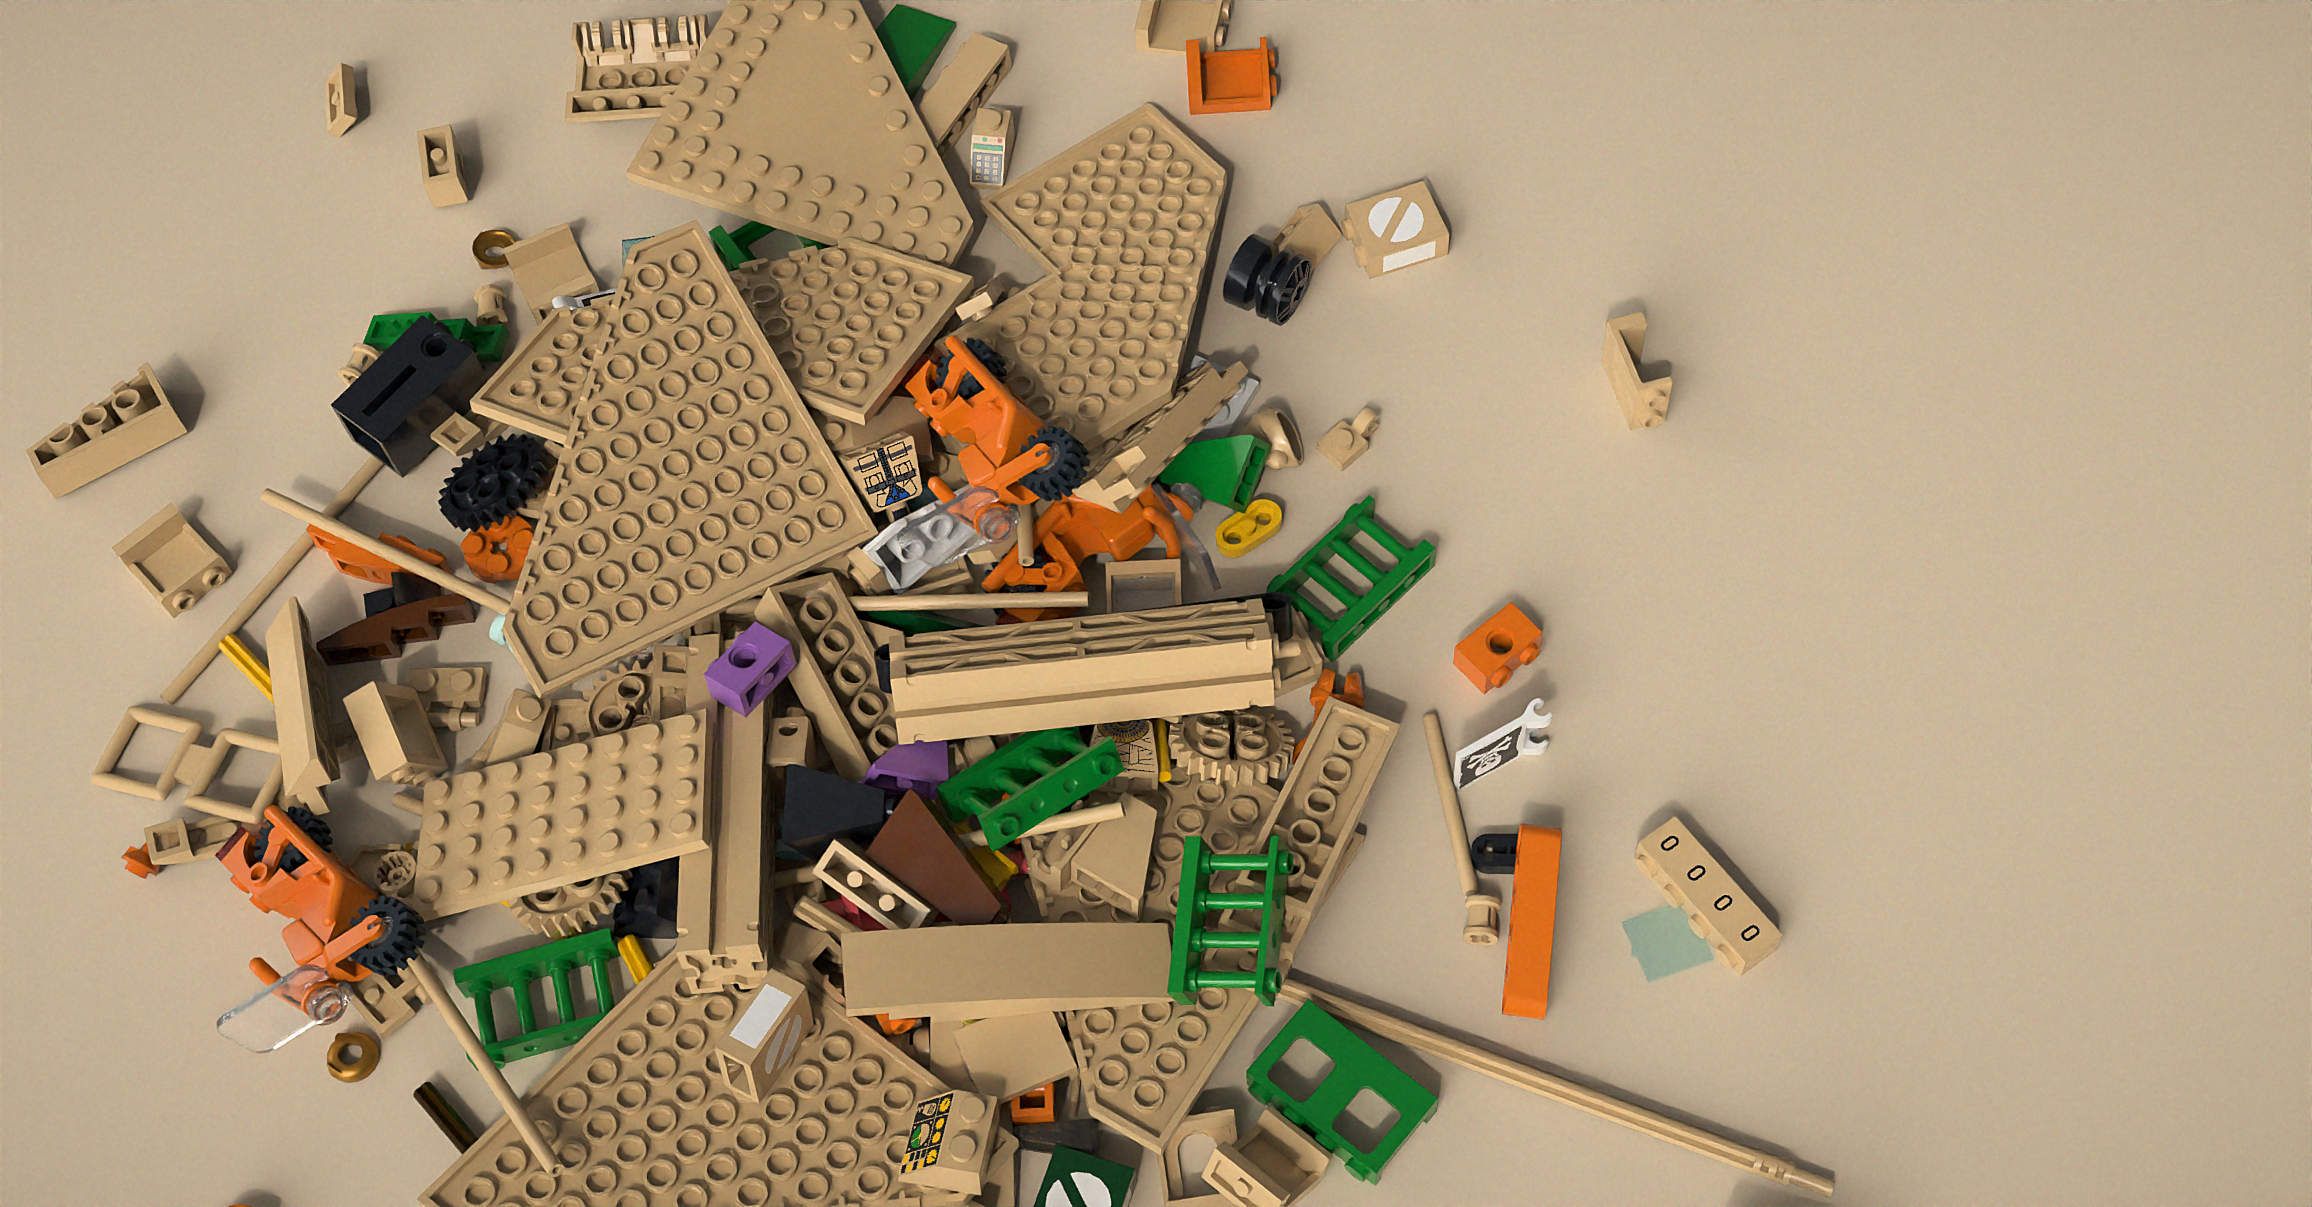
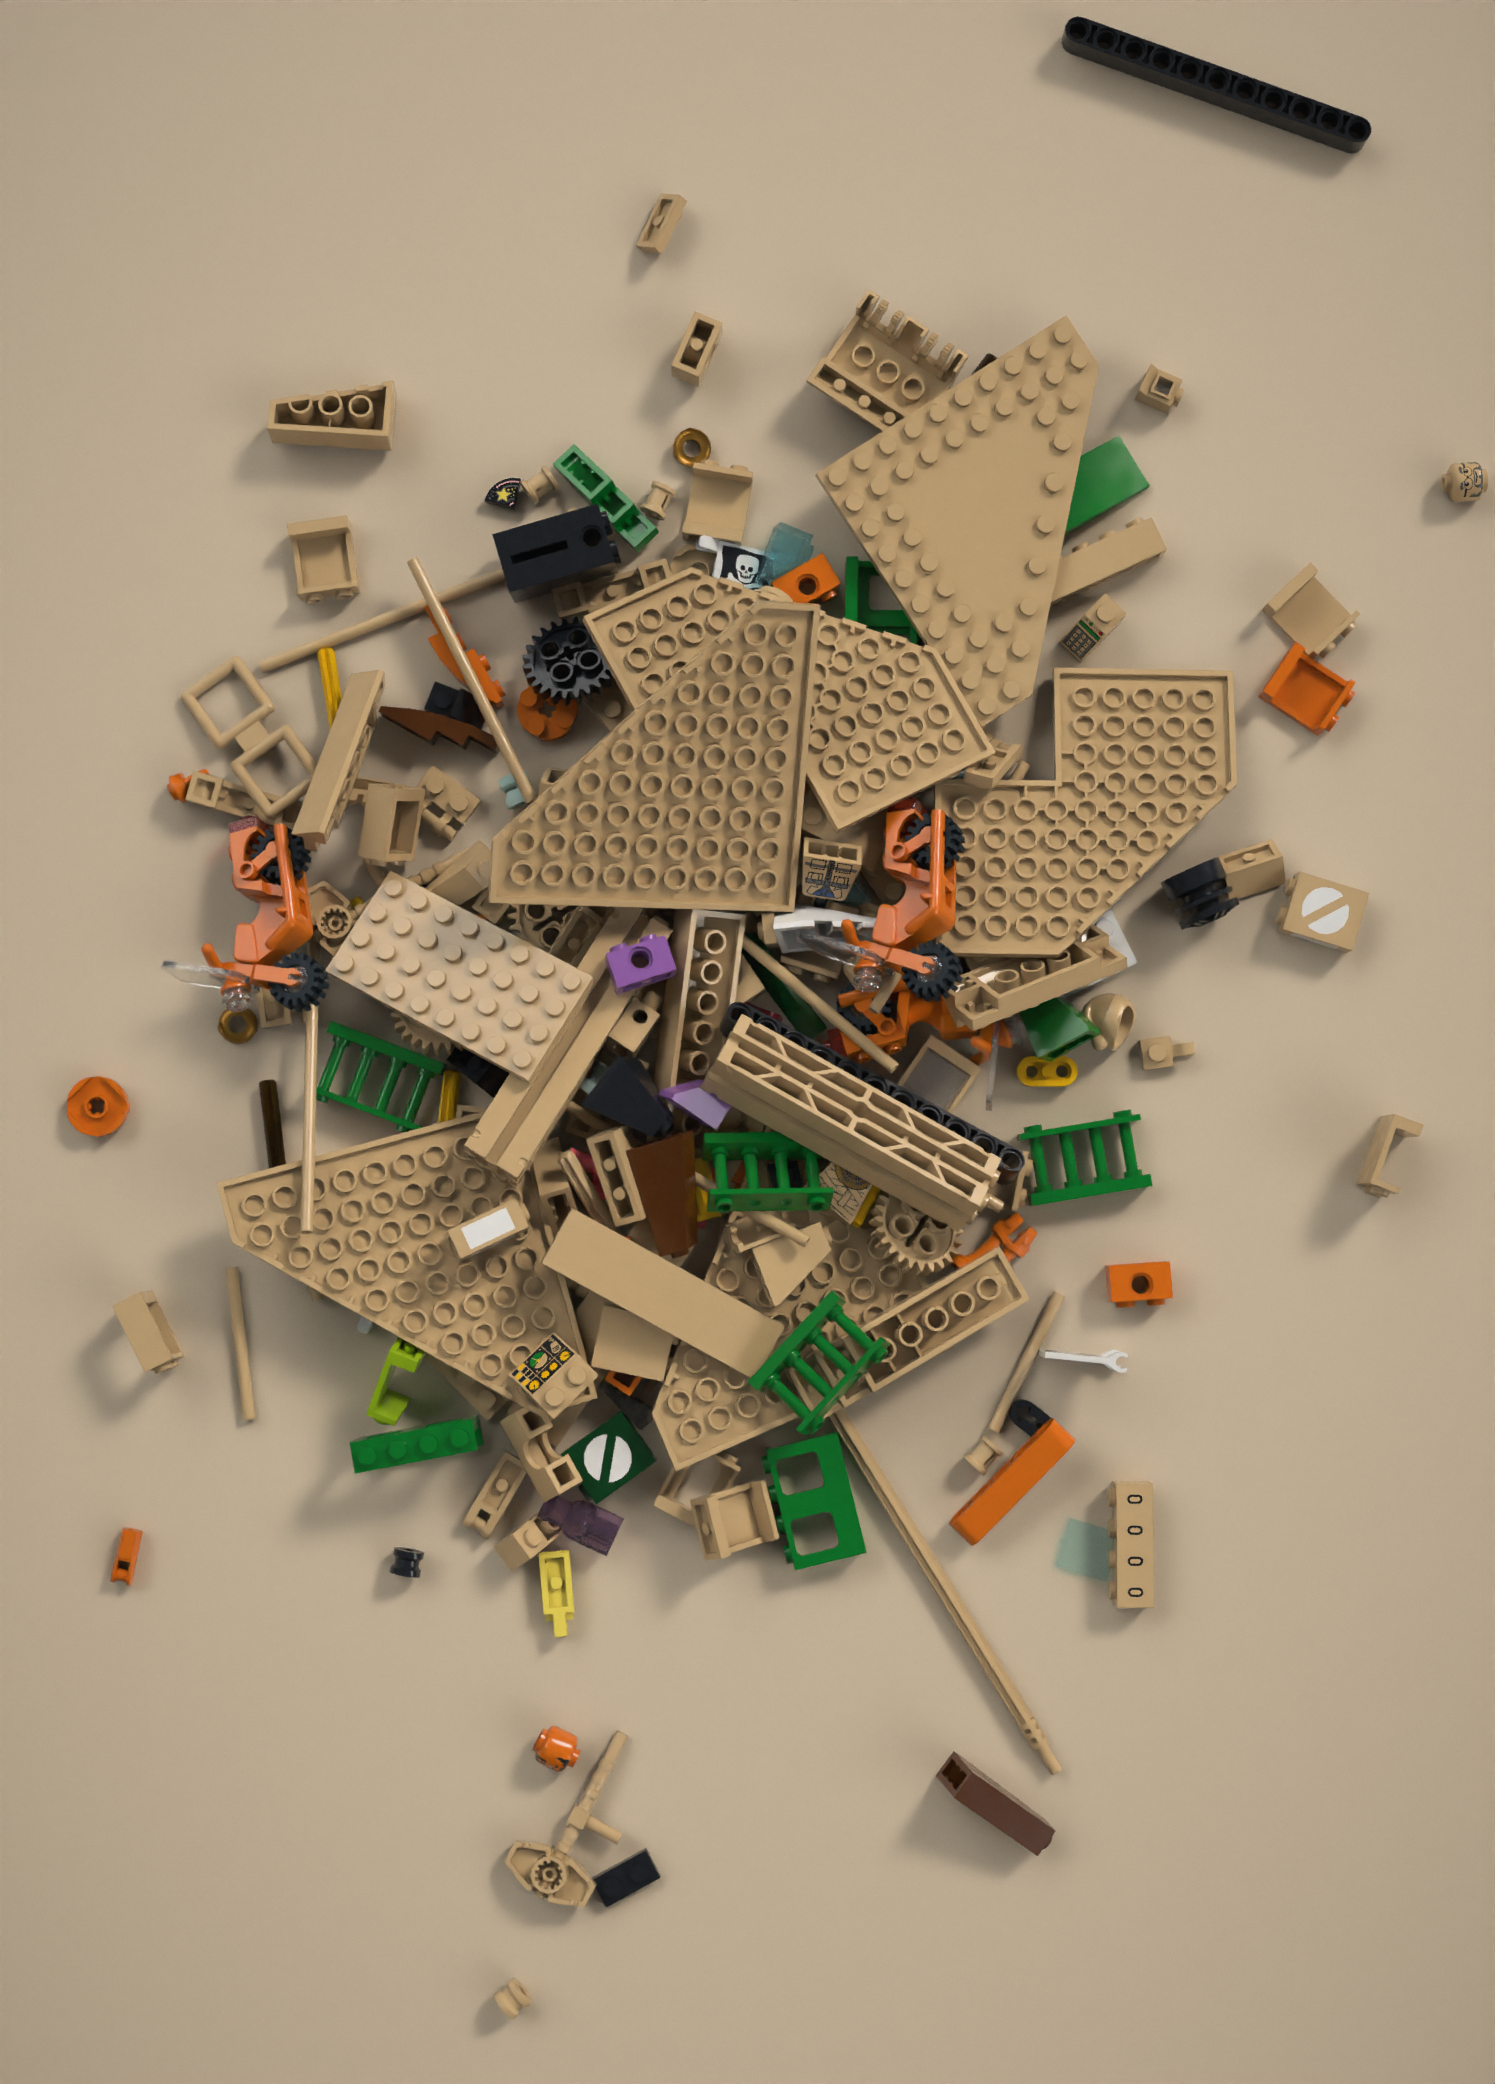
camera: 25 degrees right, 25 degrees up
(326, 395) = (504, 493): none -> black tile

